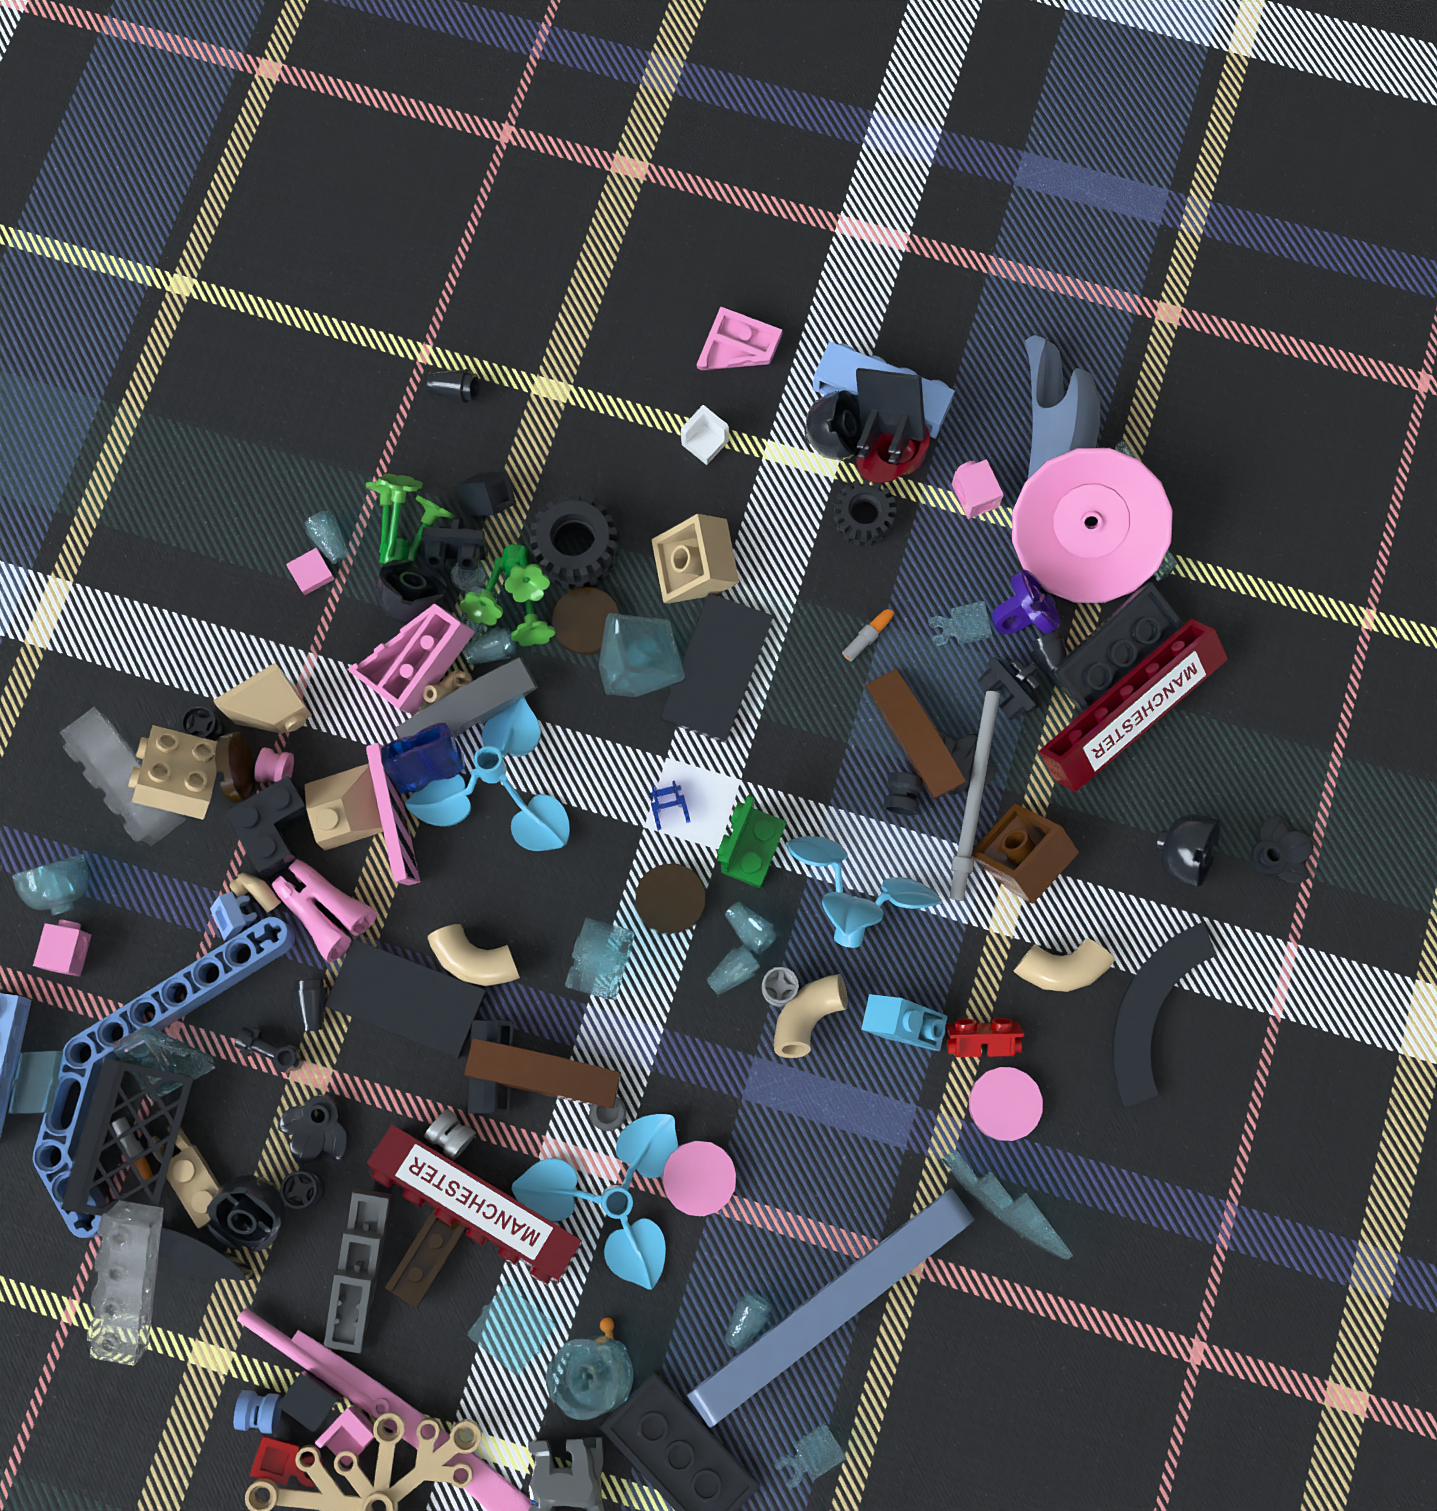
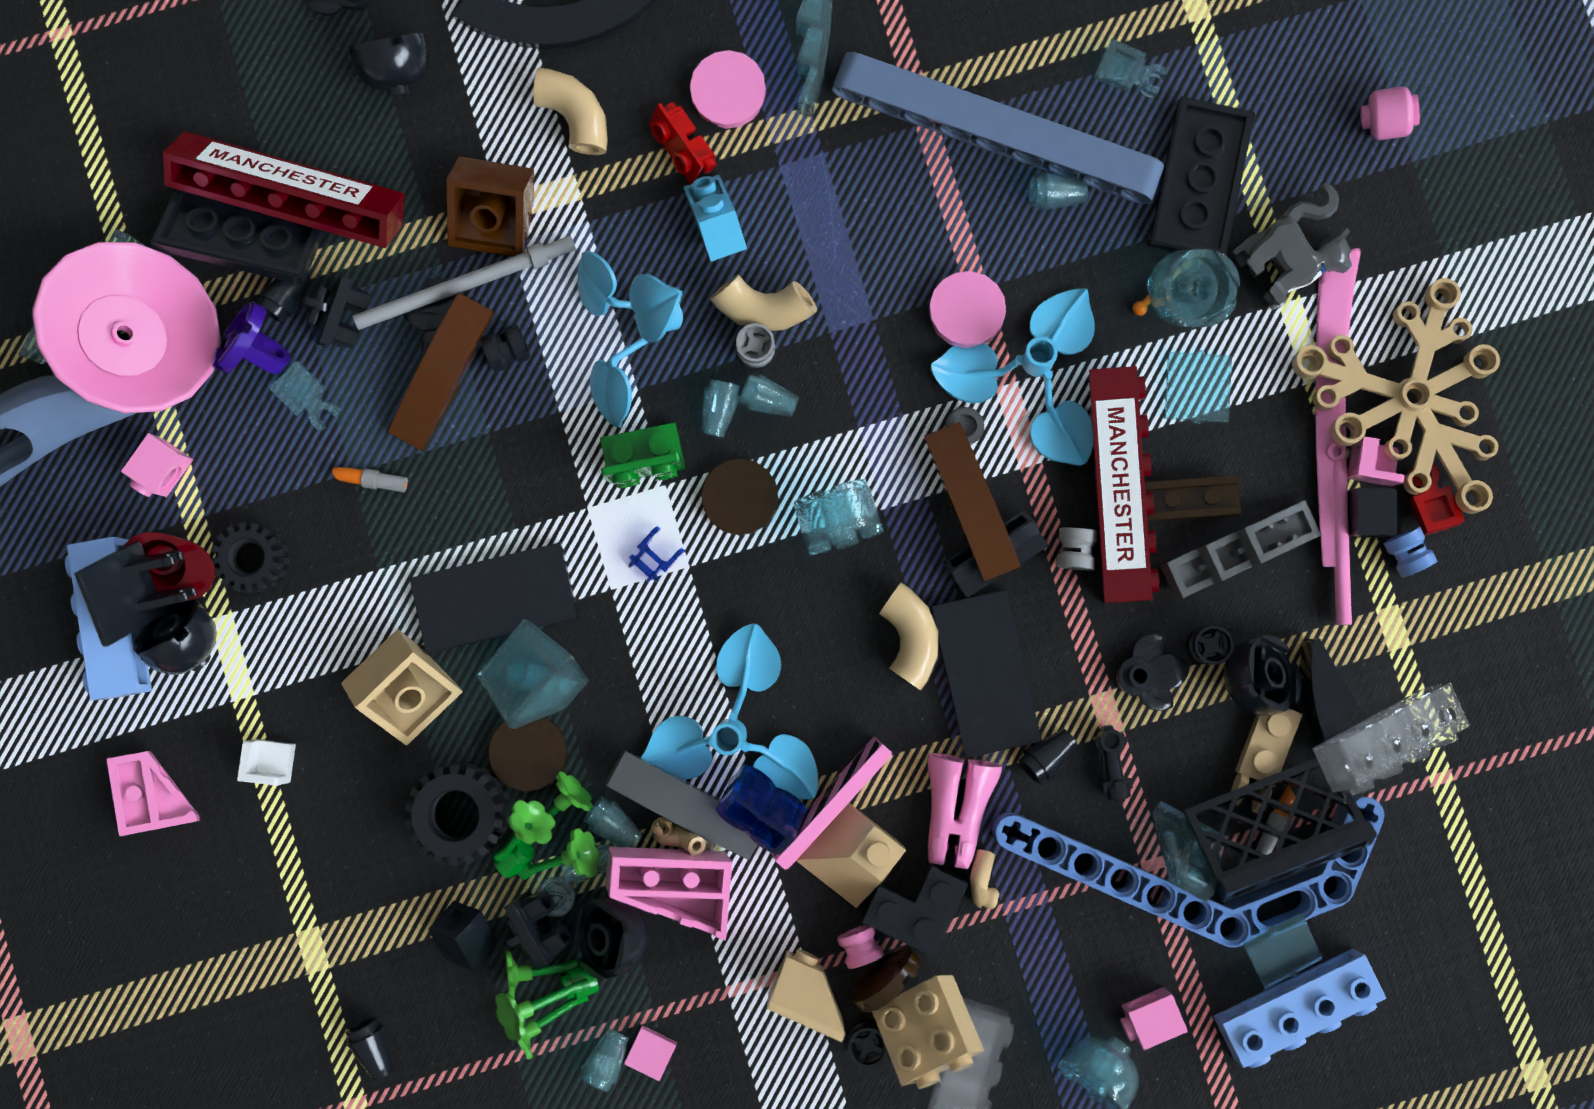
camera: 125 degrees left, 10 degrees up
(229, 916) = (1021, 887): light blue tile -> none

